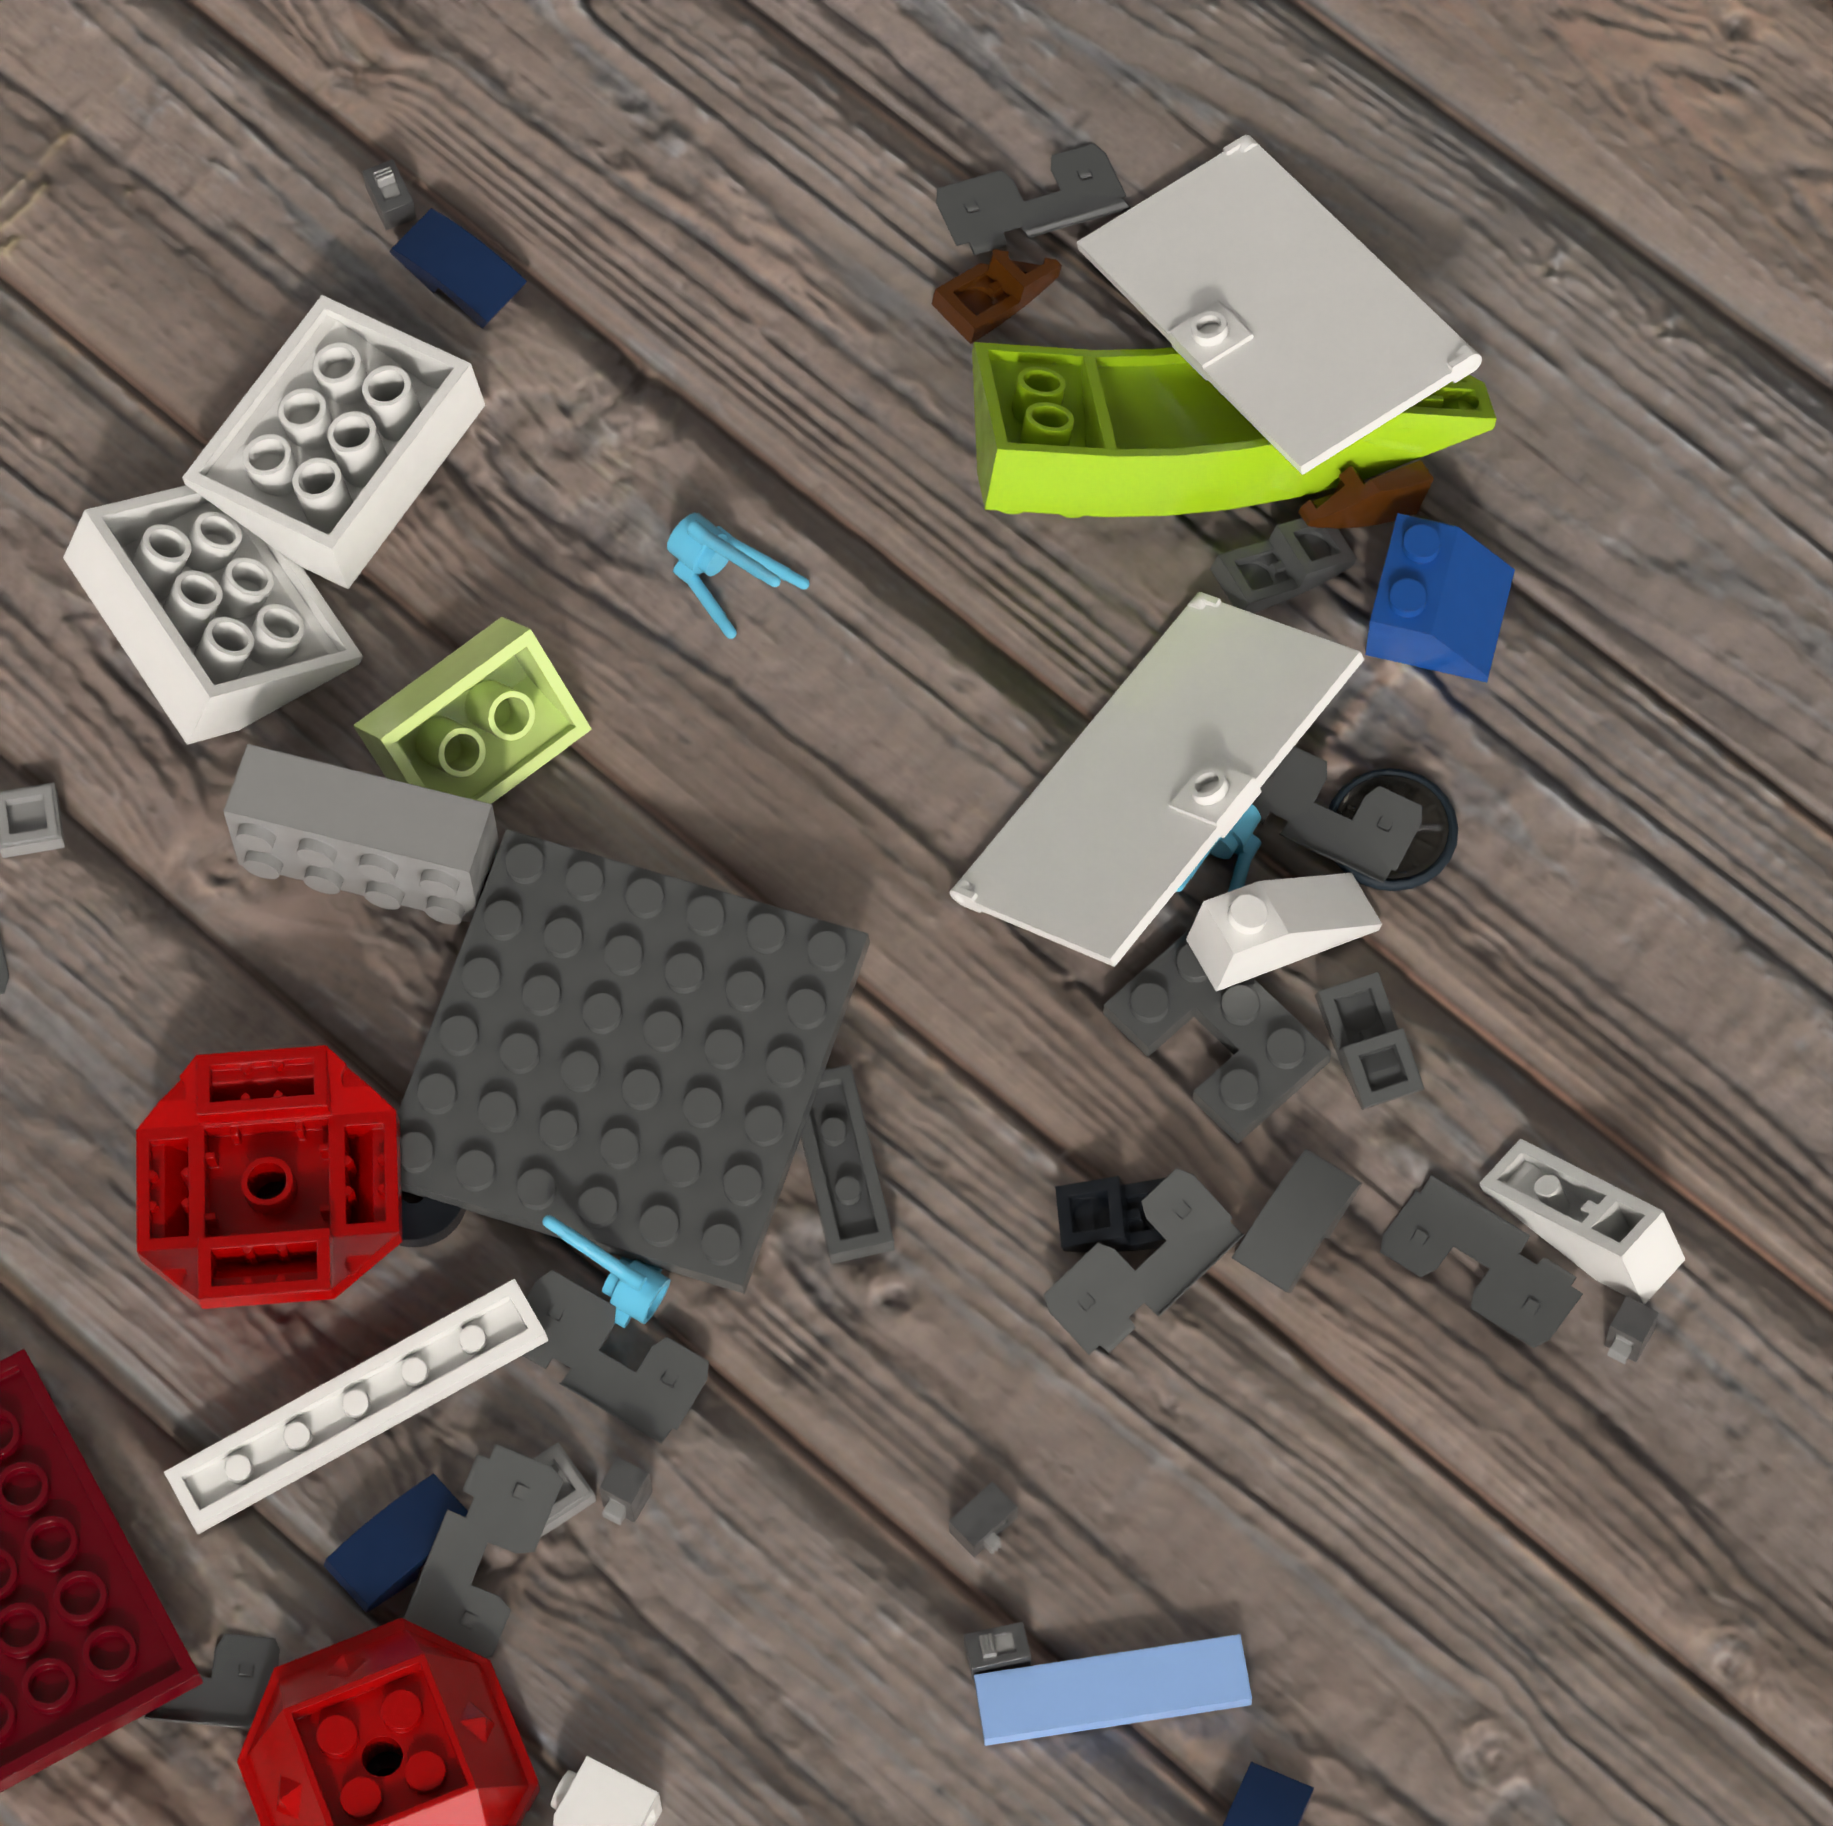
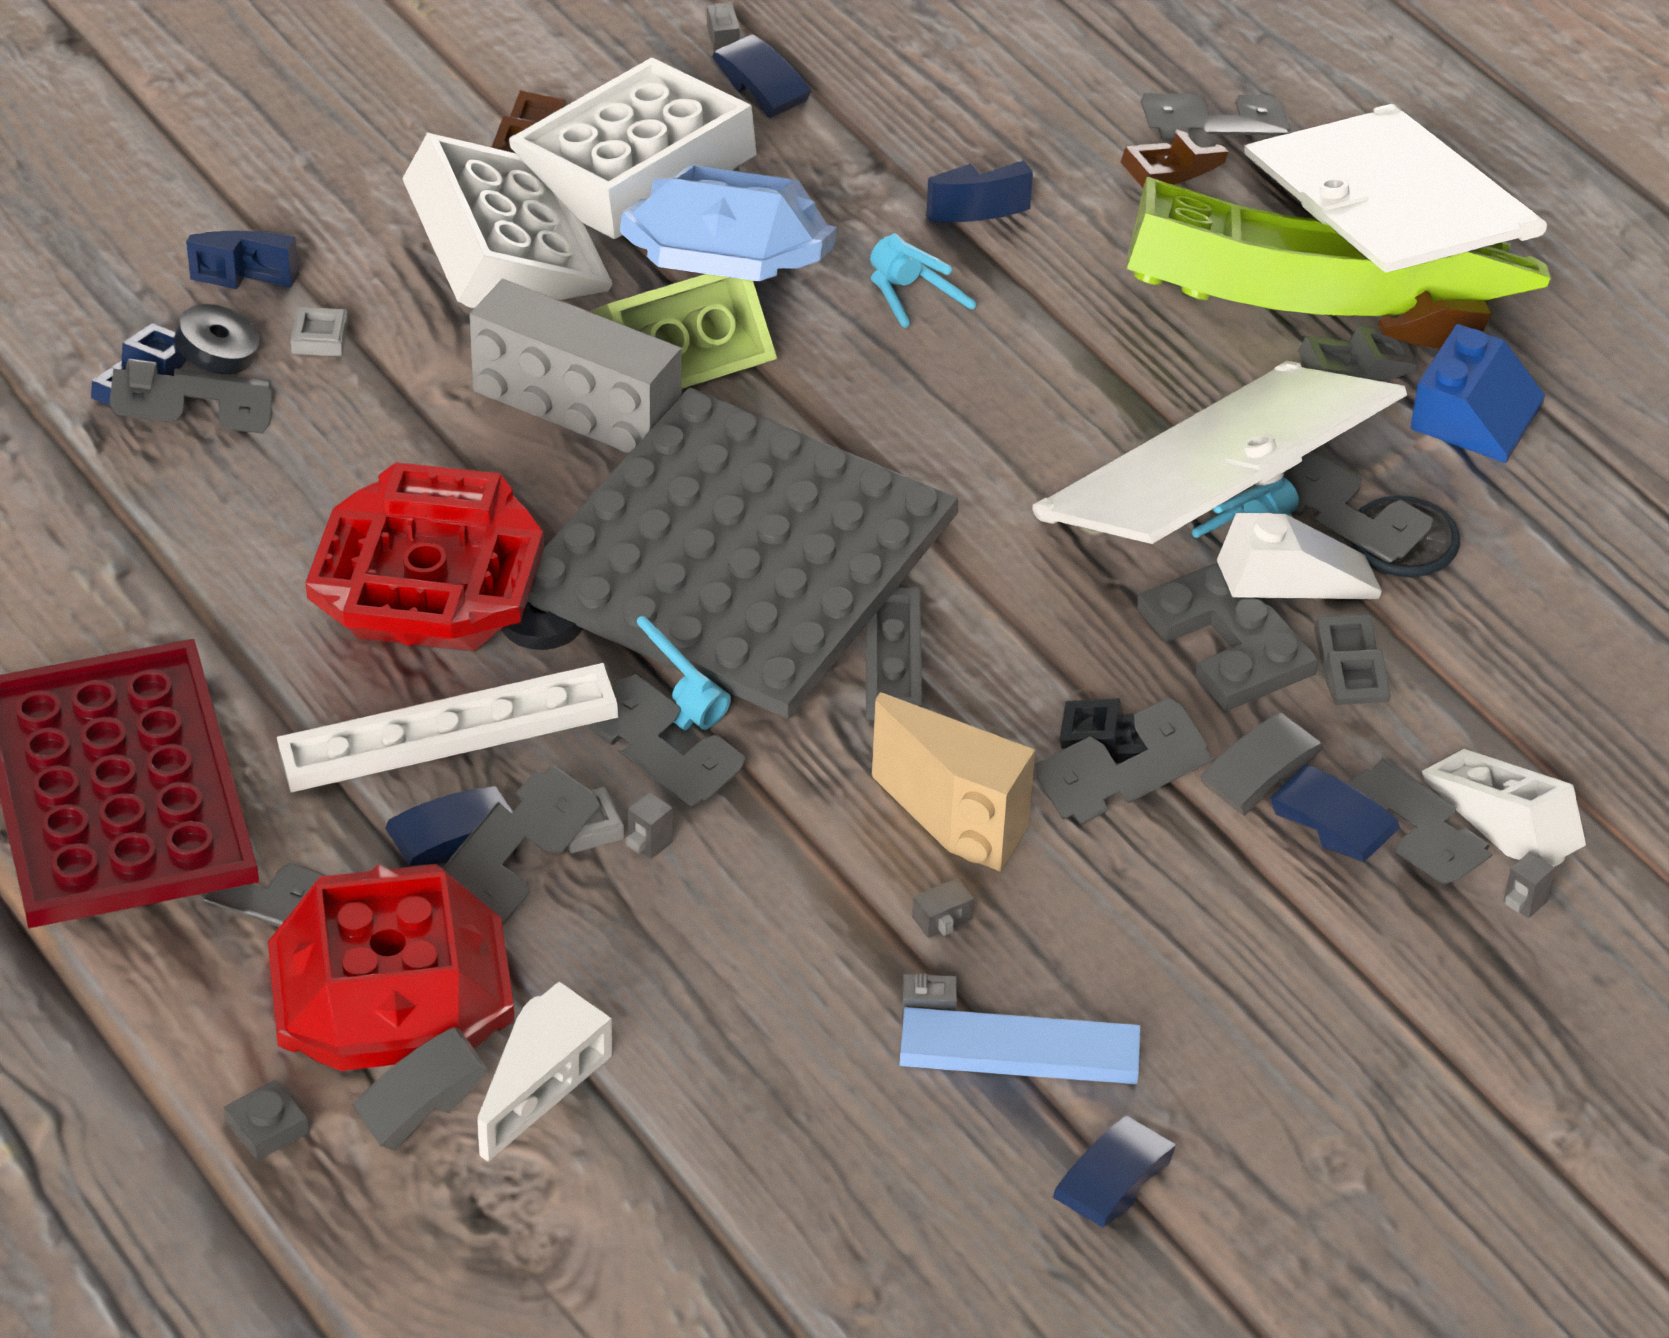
camera: 10 degrees right, 20 degrees down
(192, 415) = (526, 112): none -> reddish brown slope
(495, 584) = (728, 224): none -> light blue piece
(761, 418) = (973, 196): none -> dark blue slope
(967, 1359) = (954, 779): none -> tan slope
(1395, 1277) = (1339, 813): none -> dark blue slope

